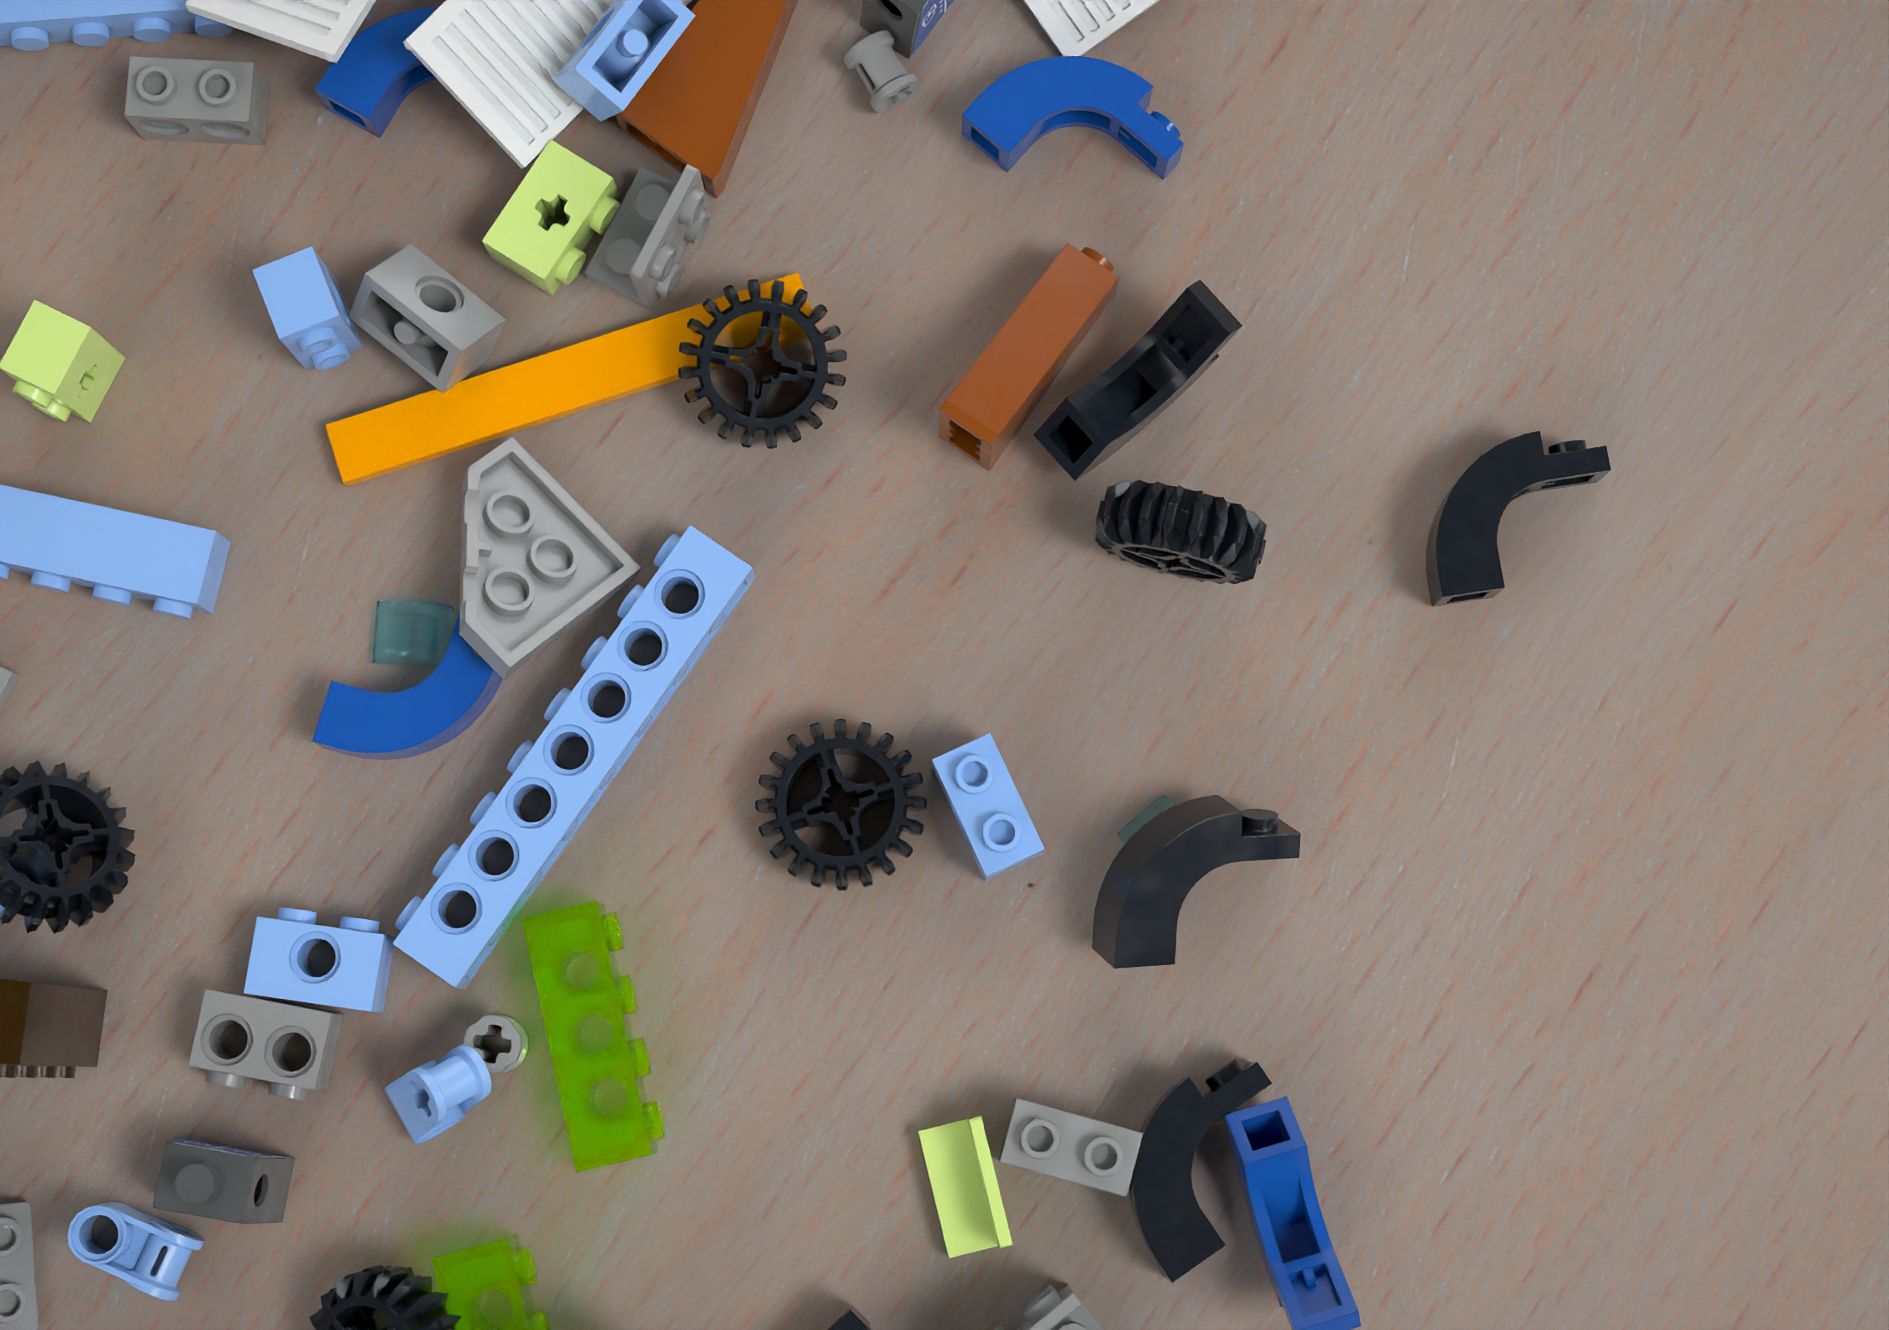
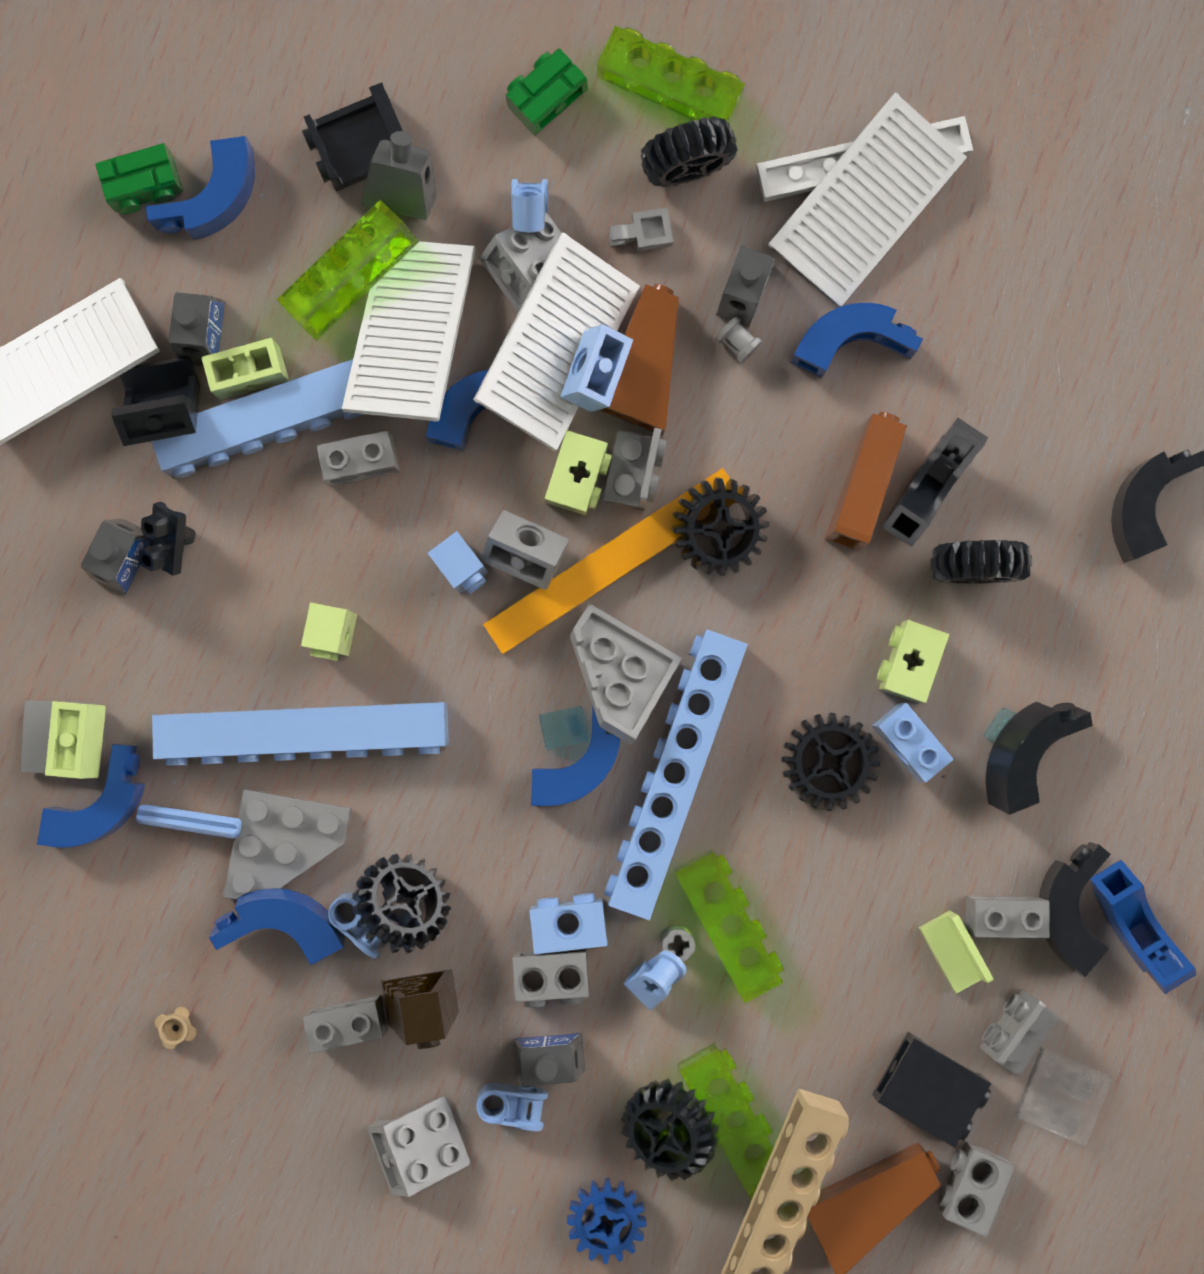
camera: 10 degrees left, 5 degrees up
(1020, 710) = (928, 649): none -> yellowish green brick

